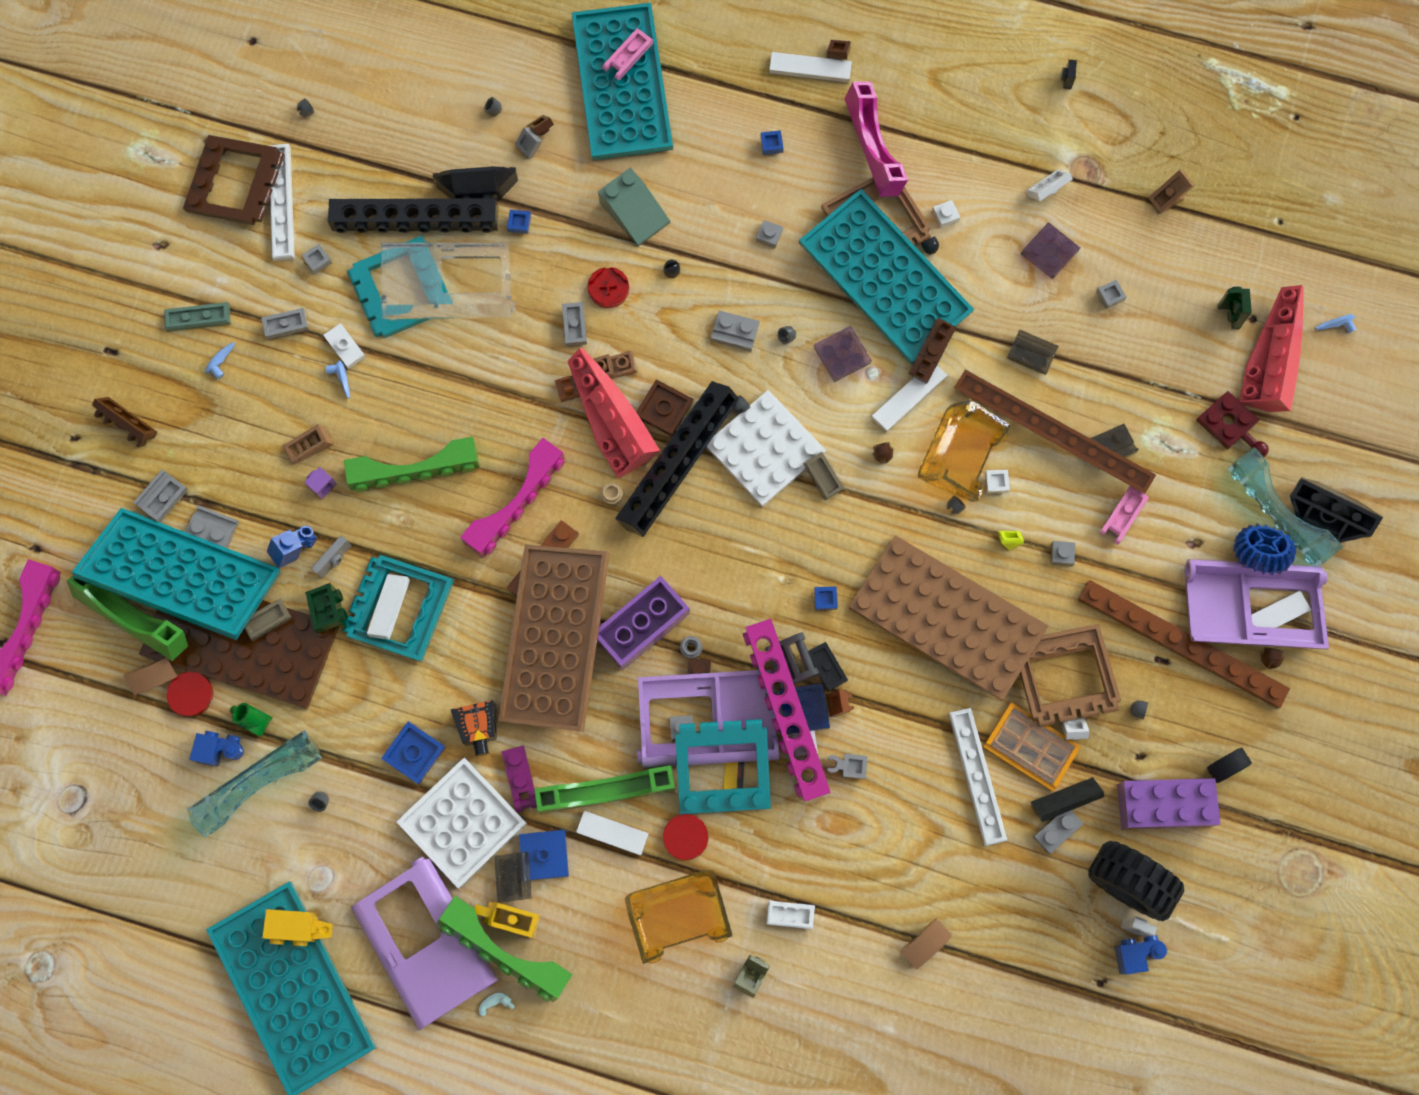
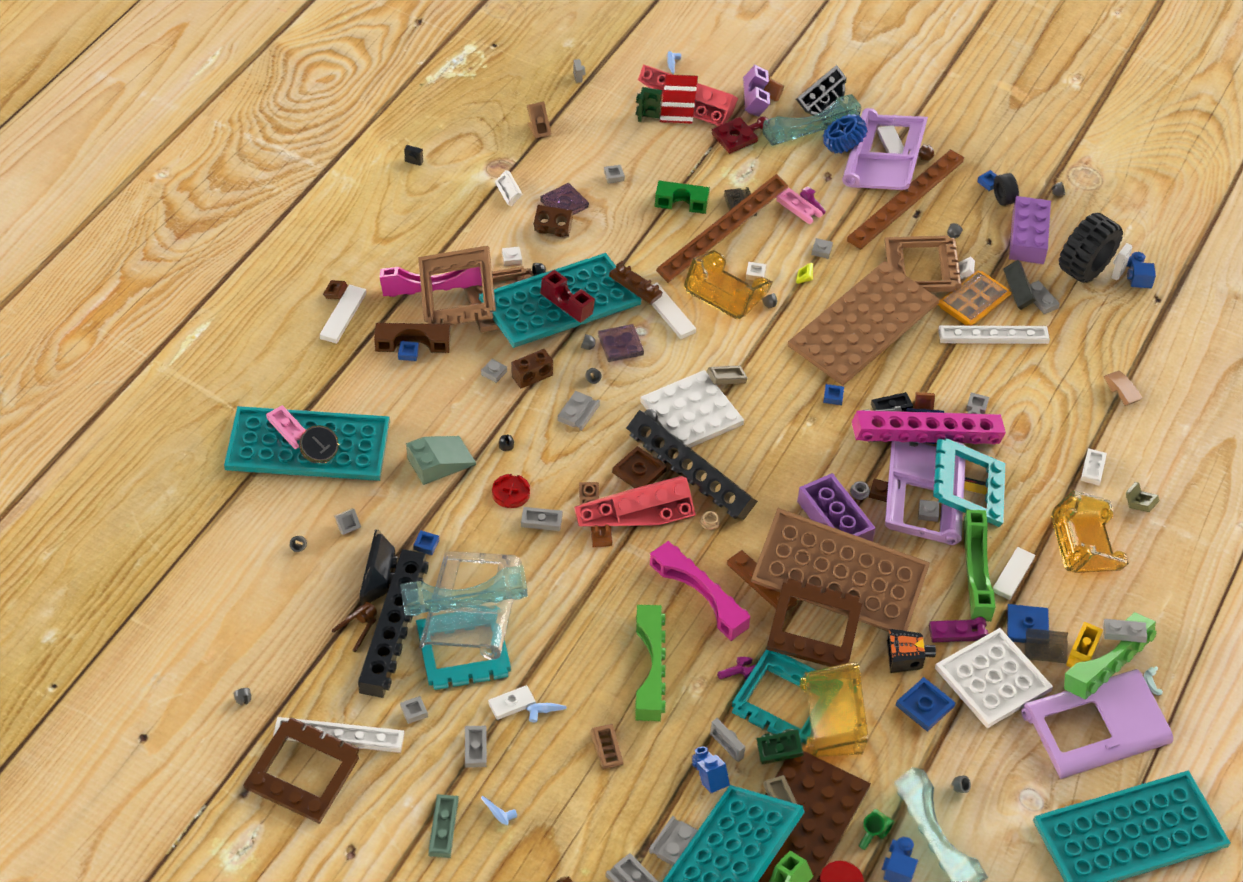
camera: 80 degrees left, 25 degrees down
(295, 926) = (1079, 809): yellow hinge -> none
(320, 482) = (650, 738): medium lavender plate -> none
(376, 655) = (836, 710): none -> clear yellow windscreen
(388, 606) = (782, 699): white tile -> none
(420, 187) = (364, 614): none -> reddish brown plant
(424, 553) = (738, 669): none -> magenta bar
(429, 228) = (422, 598): none -> clear light blue arch
(451, 618) = (807, 648): none -> reddish brown hinge
(529, 961) = (1125, 630): none -> light grey plate
(541, 125) = (331, 508): reddish brown plate -> none
(609, 87) = (319, 444): none -> black tile
(685, 837) = (1022, 524): red tile -> none
(776, 269) = (532, 368): none -> reddish brown brick
(796, 164) = (434, 336): none -> reddish brown arch
(835, 319) = (588, 342): none -> dark grey hinge
(876, 277) = (577, 305): none -> dark red arch
(883, 452) = (714, 334): reddish brown plate -> none
(886, 152) = (456, 261): none -> medium nougat hinge
(1011, 242) = (554, 216): none -> reddish brown brick
(1032, 352) = (651, 228): clear smoke plate -> none
(1096, 359) = (671, 192): none -> green arch
(1137, 529) = (808, 194): none -> magenta bar
(1248, 742) = (987, 180): none -> blue plate
(1260, 340) = (679, 98): none -> red sticker
(1260, 838) = (1058, 189): none -> dark grey hinge
(1276, 218) = (578, 70): none -> light grey plate
(1321, 426) = (754, 96): none -> medium lavender arch
(1324, 451) = (775, 89): none -> dark orange tile

